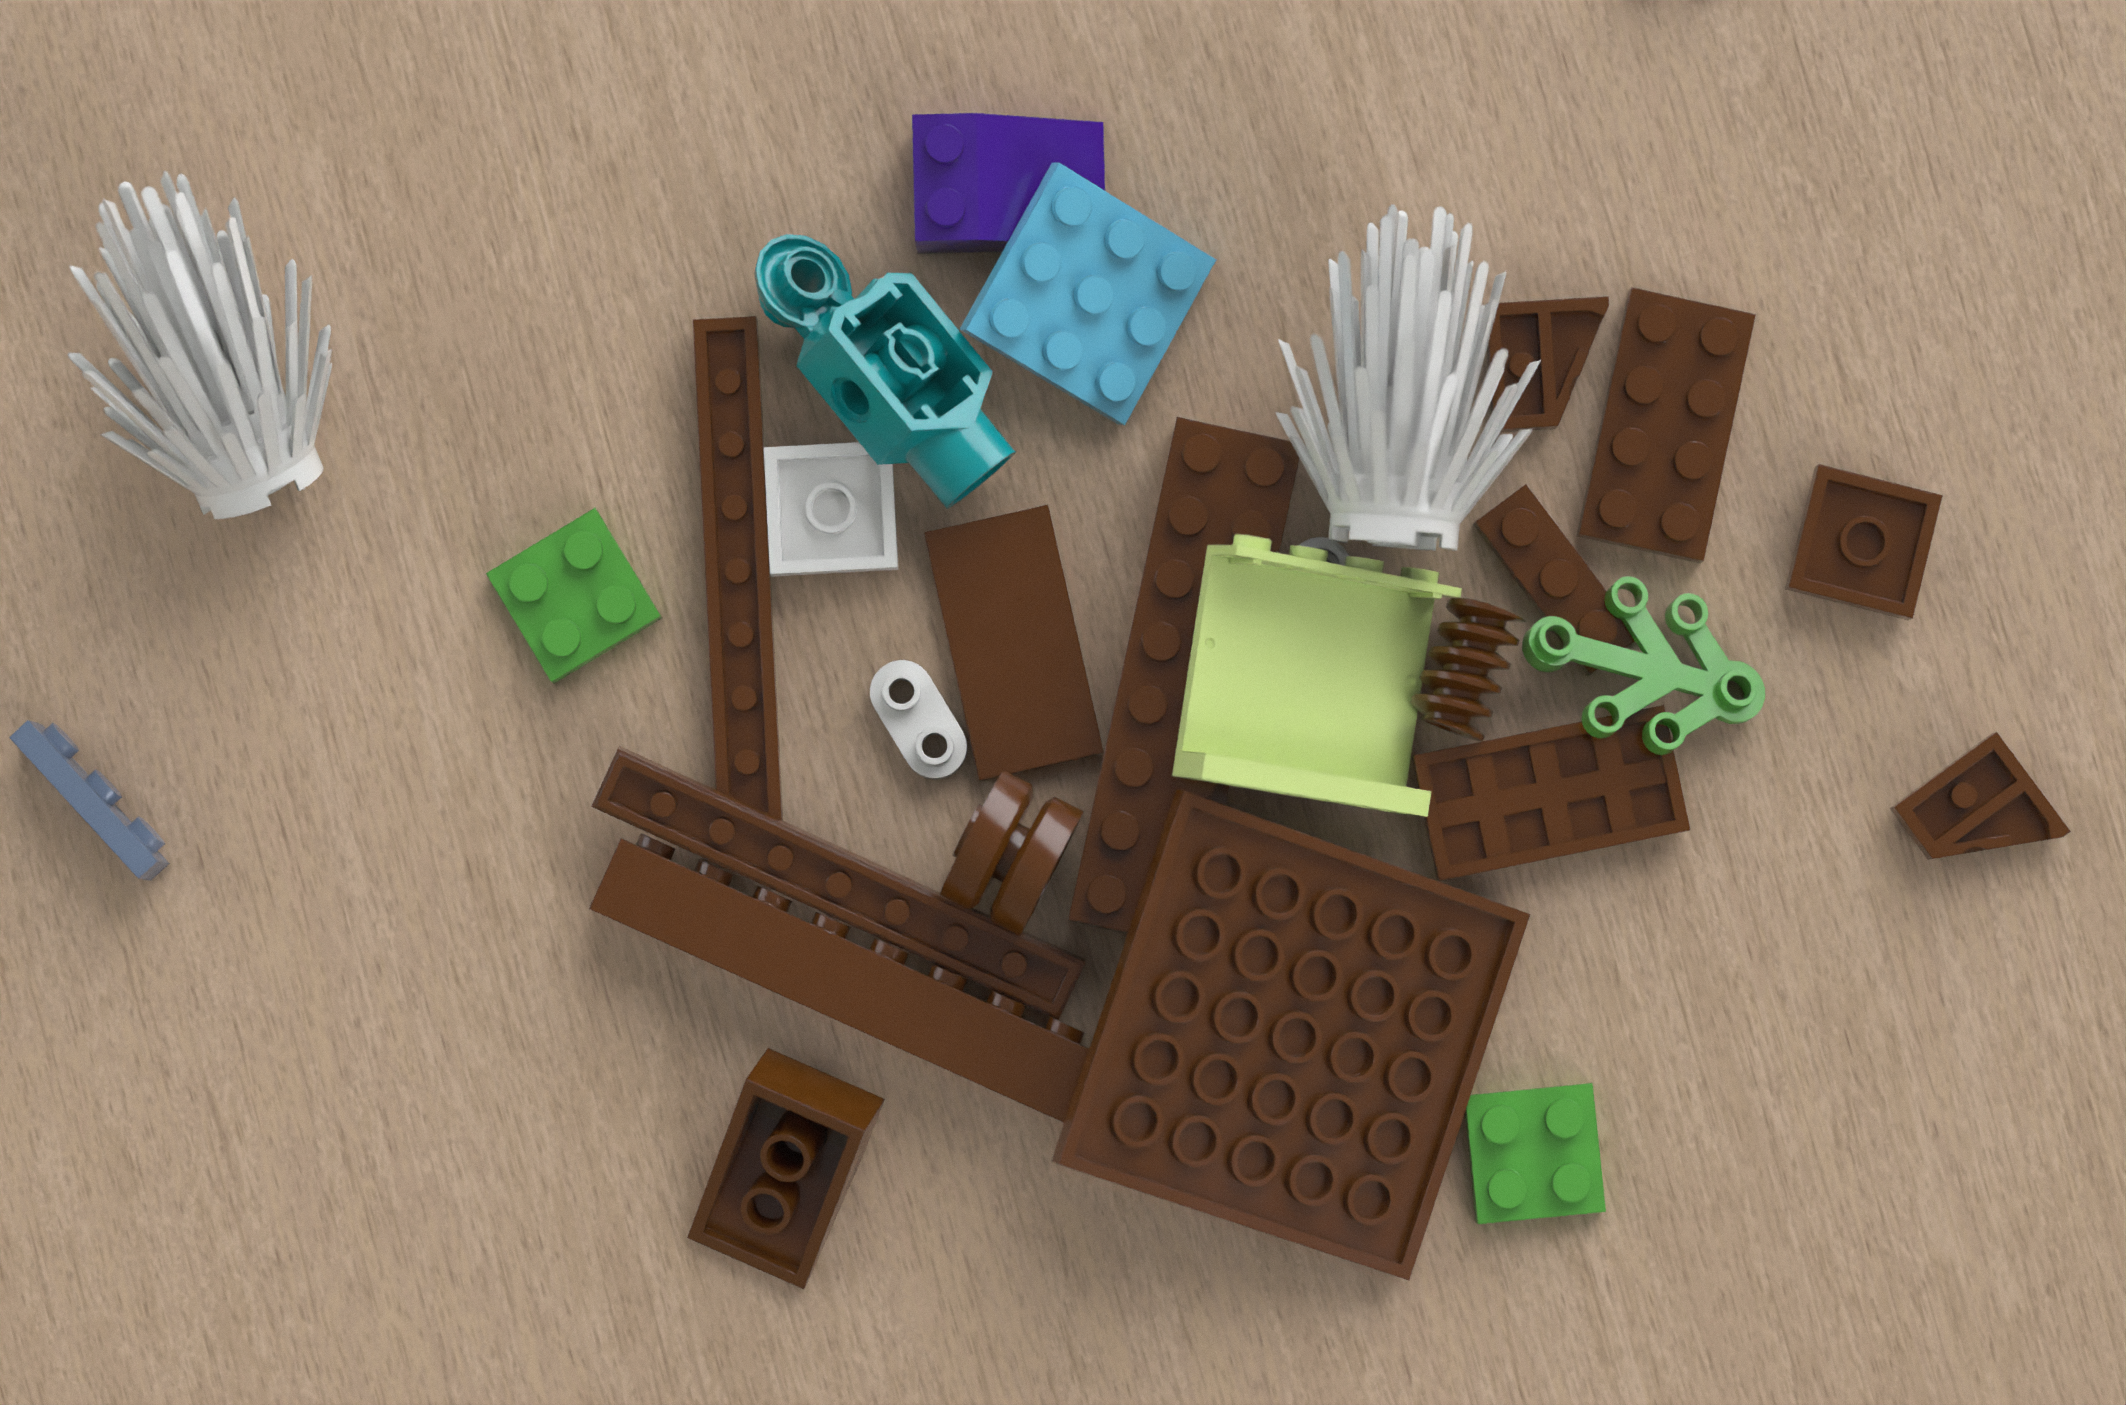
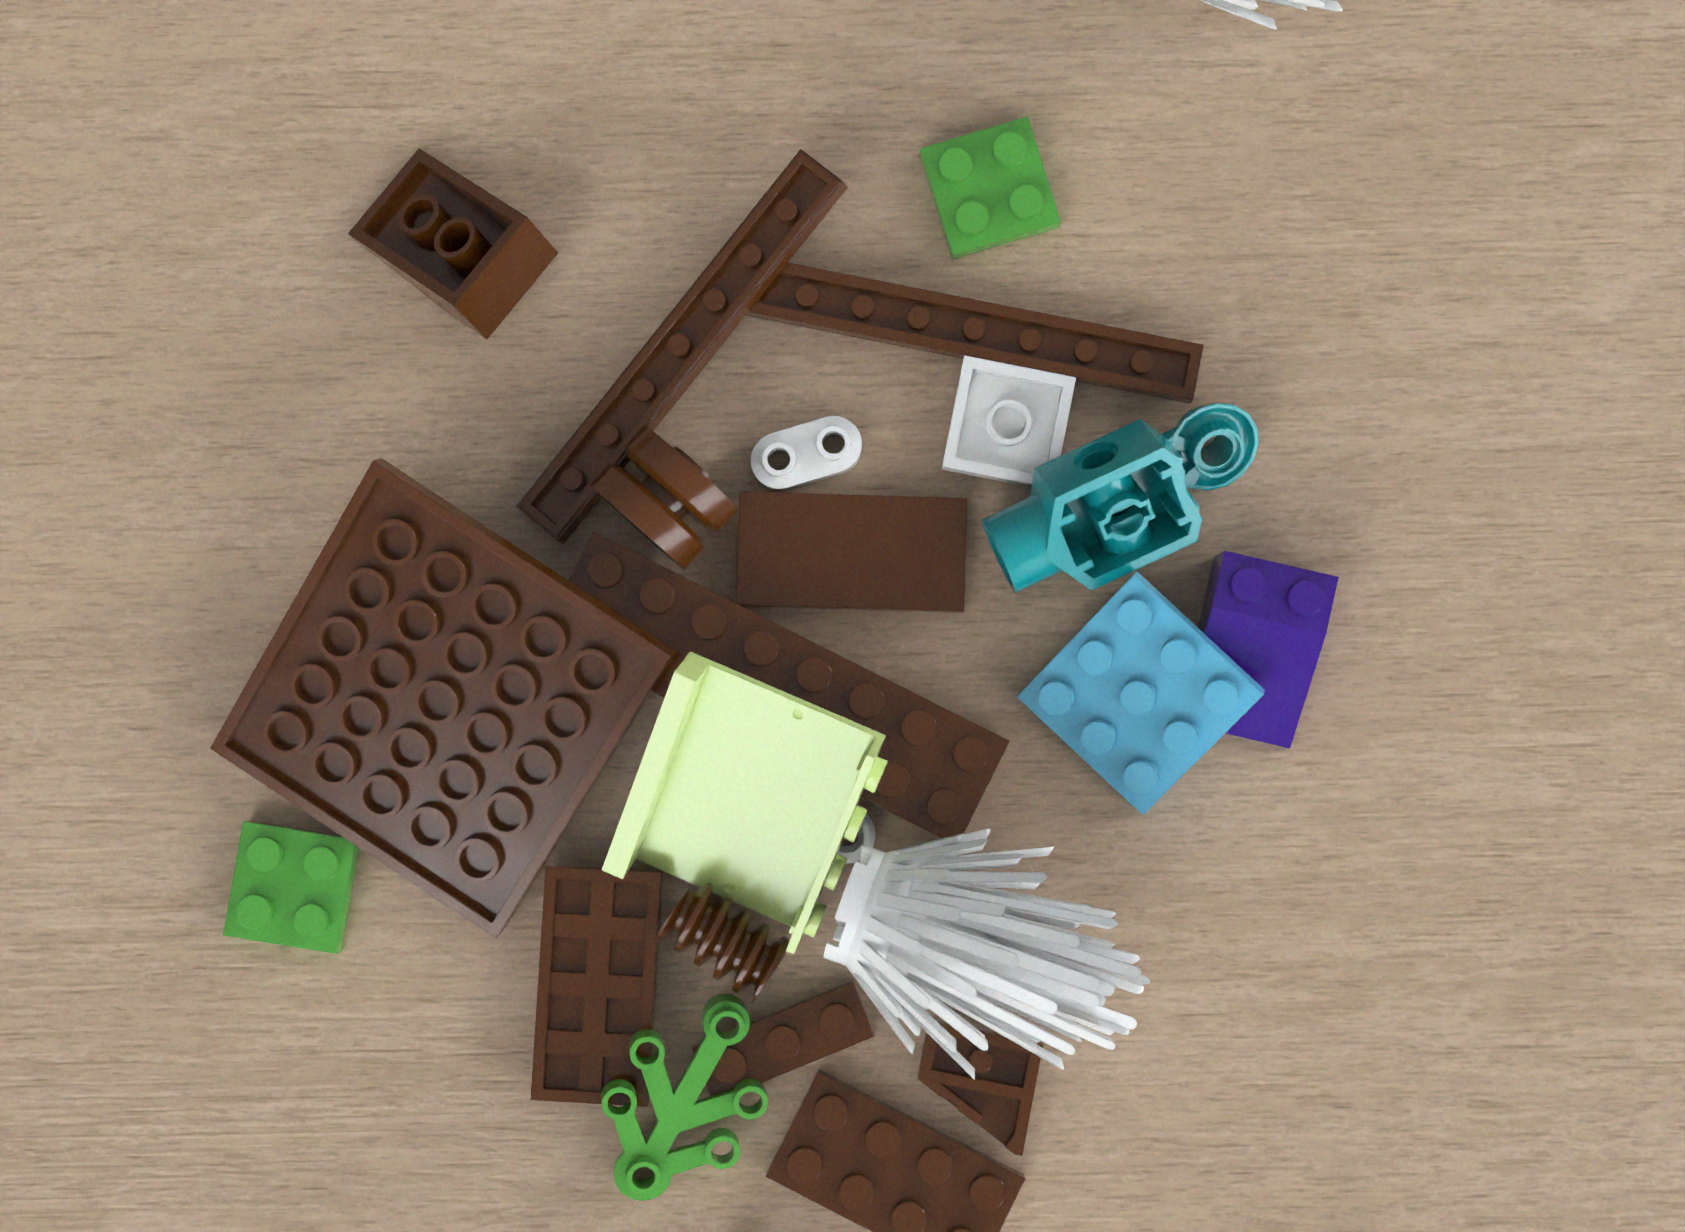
camera: 110 degrees right, 0 degrees up
(841, 978) = (599, 330): reddish brown brick -> none

